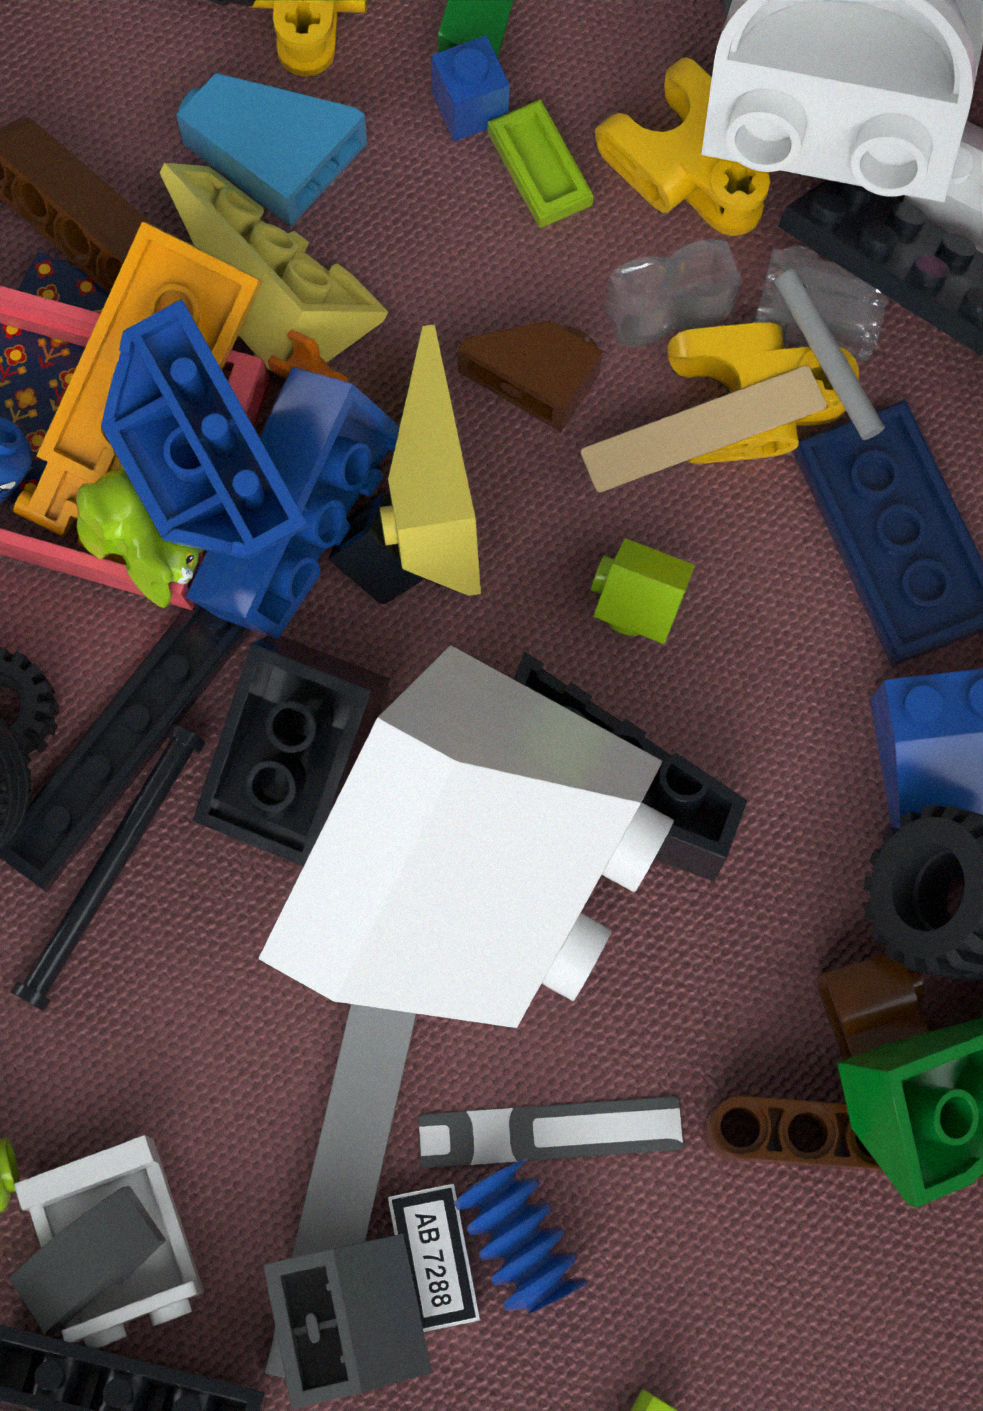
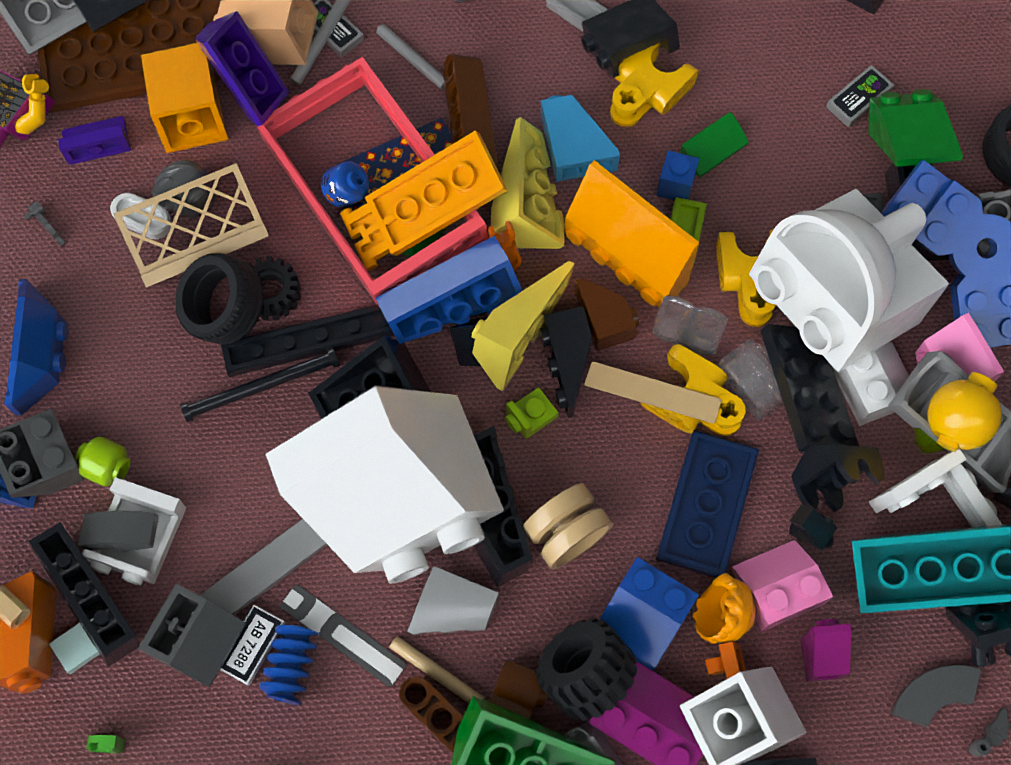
camera: 45 degrees right, 5 degrees down
(118, 523) = (372, 246): lime animal -> none
(193, 443) = (423, 235): blue wedge -> none
(487, 220) = (630, 236): none -> light orange slope
(526, 456) = (569, 344): none -> black slope
(547, 595) = (530, 413): none -> lime bracket
(641, 590) = (569, 440): lime brick -> none
(675, 959) = (452, 605): none -> light grey slope
(732, 1072) = (434, 670): none -> tan bar
(761, 716) = (567, 526): none -> tan wheel
(829, 354) = (733, 401): light grey bar -> none

